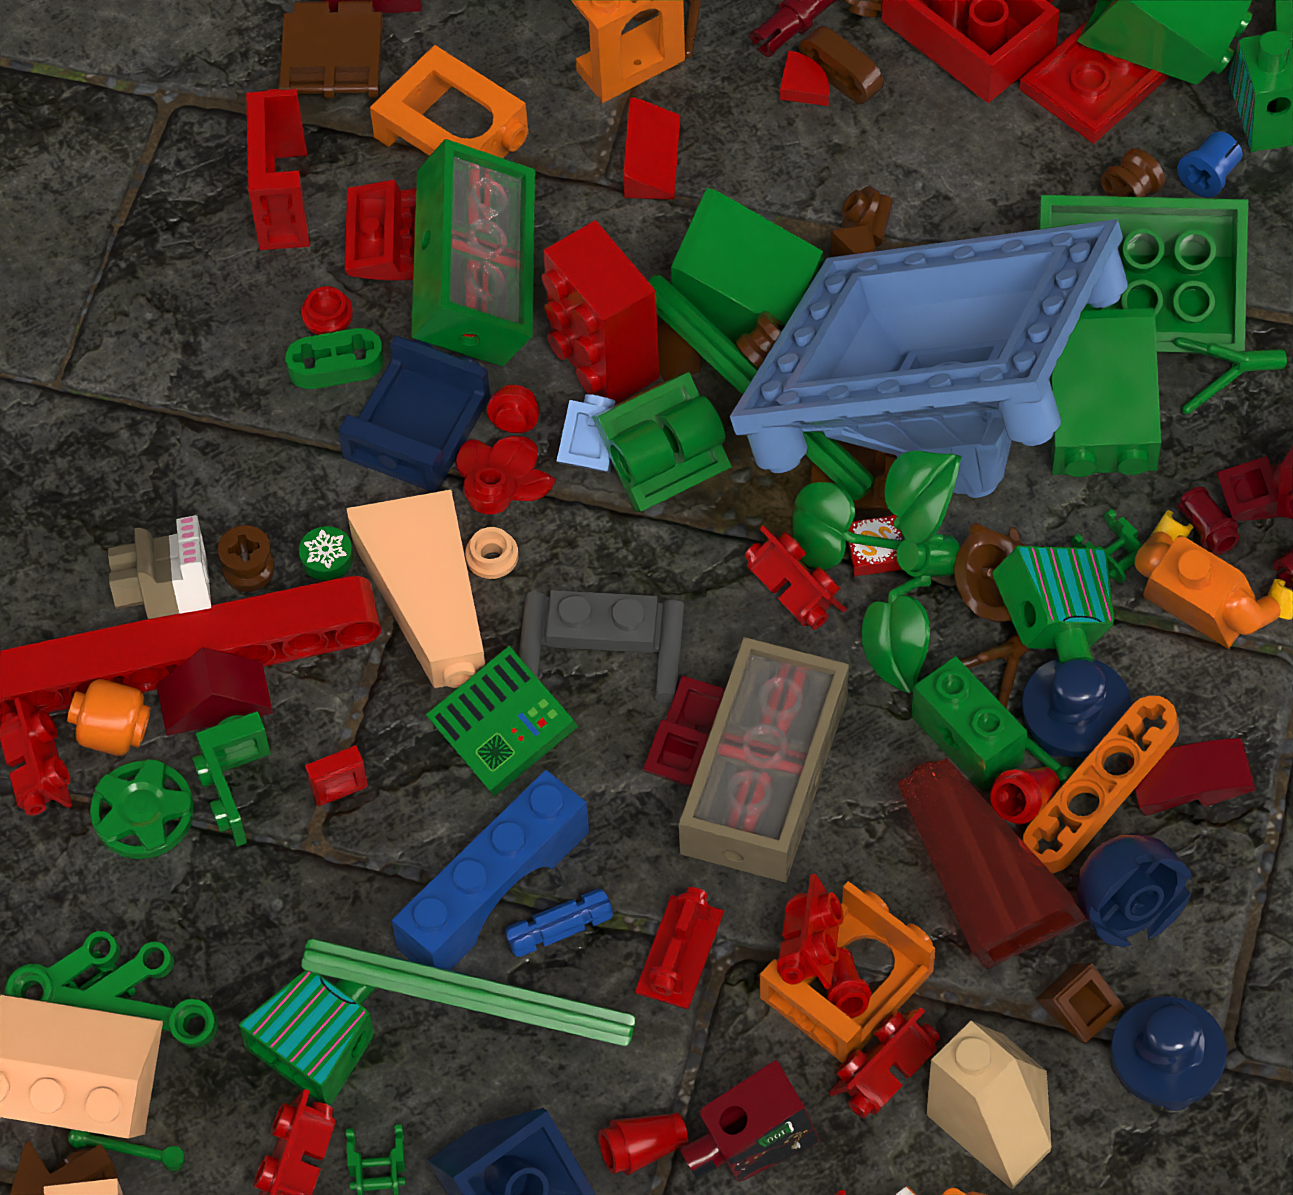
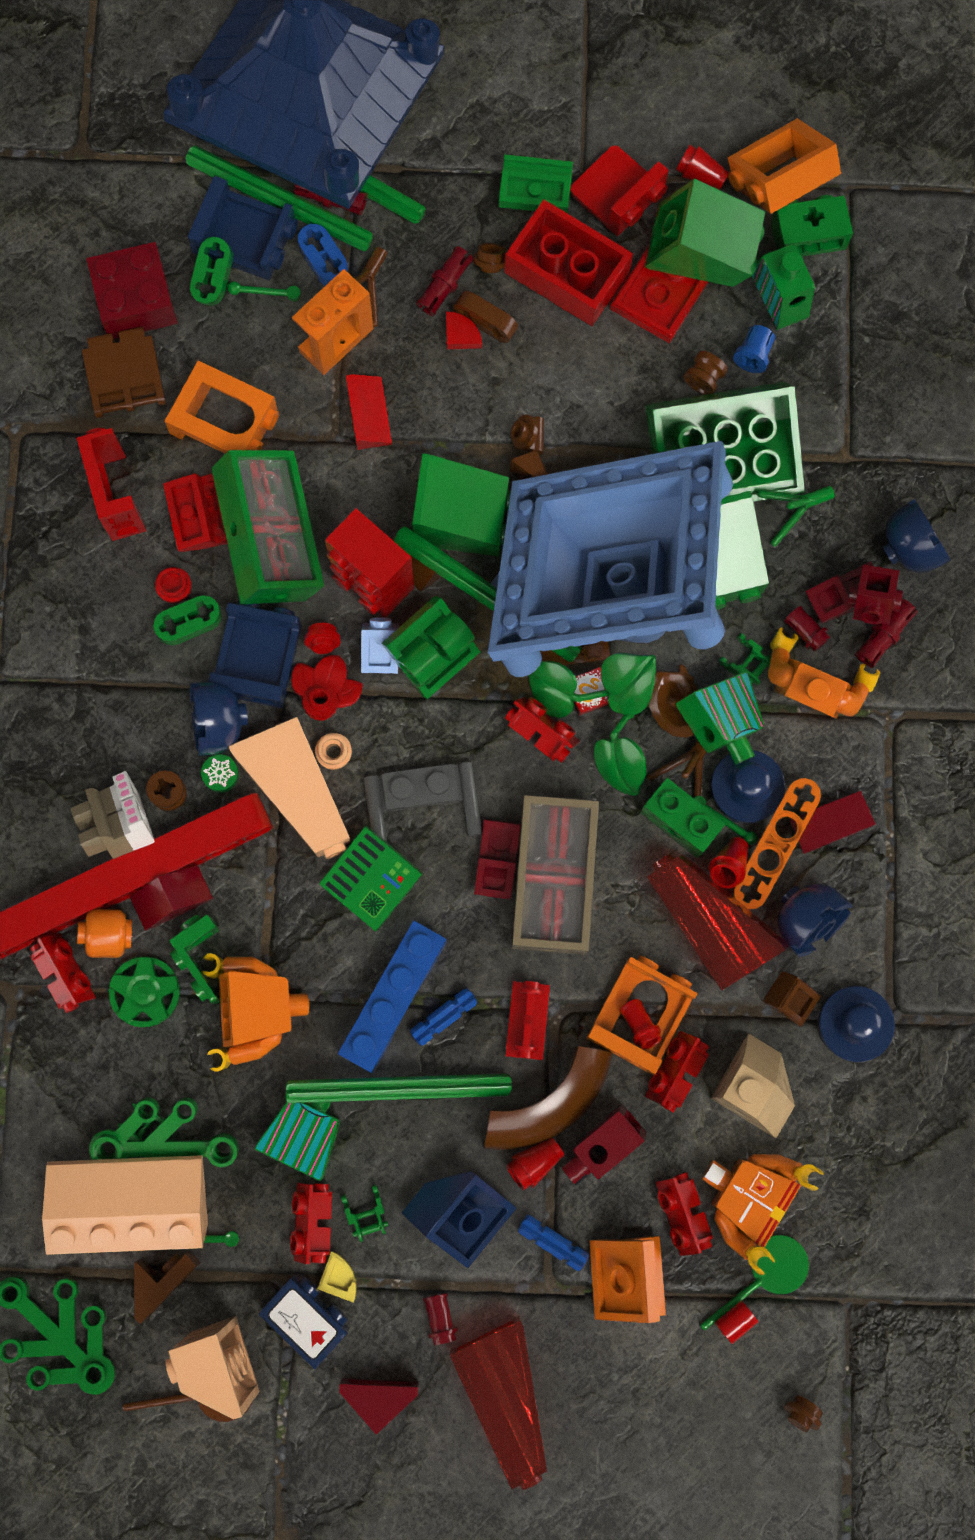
camera: 20 degrees left, 20 degrees up
(287, 851) = (253, 1008): none -> orange torso
(336, 776) = (271, 944): red tile -> none
(339, 471) = (215, 717): none -> dark blue cylinder
(686, 1070) = (557, 1110): none -> reddish brown brick
(761, 339) = (487, 562): reddish brown wheel -> none
(810, 935) = (614, 988): red hinge -> none

